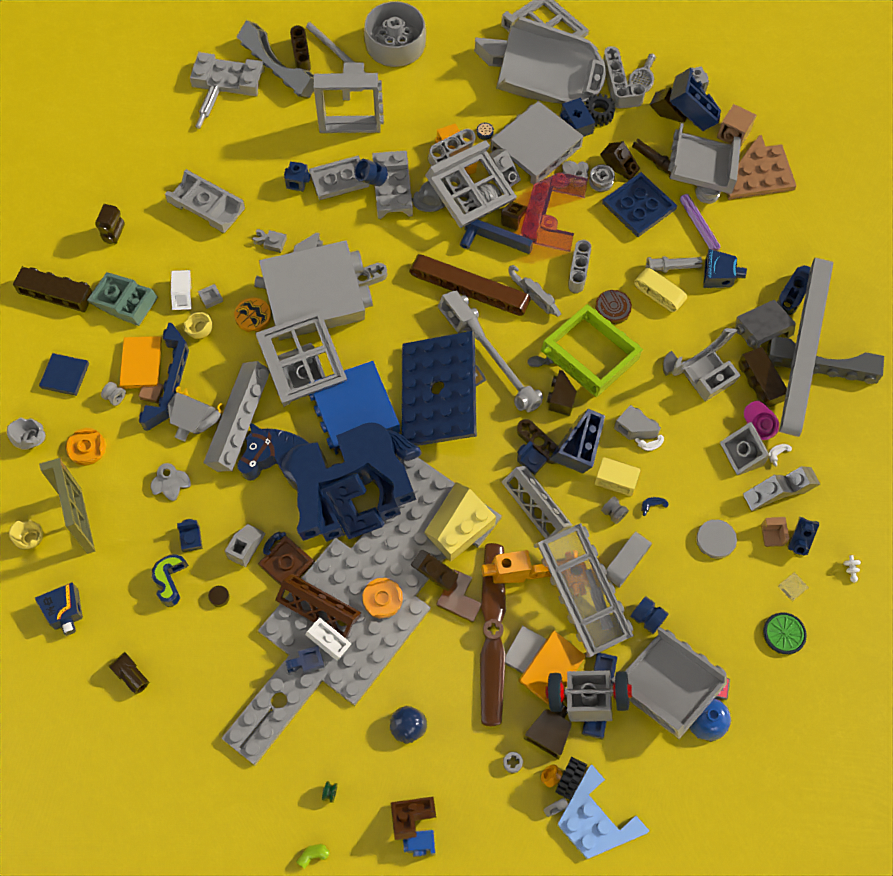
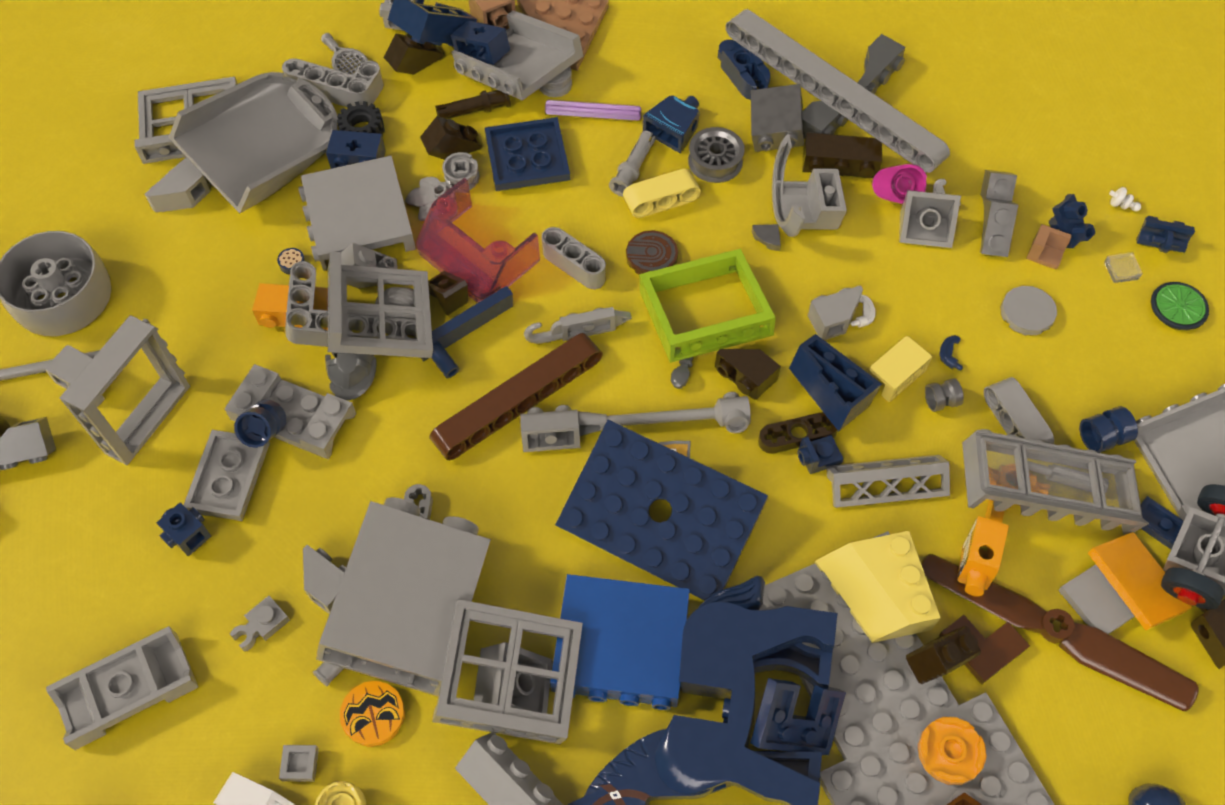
camera: 60 degrees left, 5 degrees down
(700, 134) = (481, 41): none -> dark blue brick
(710, 315) = (716, 154): none -> flat silver wheel
(836, 602) = (1165, 234): none -> dark blue hips

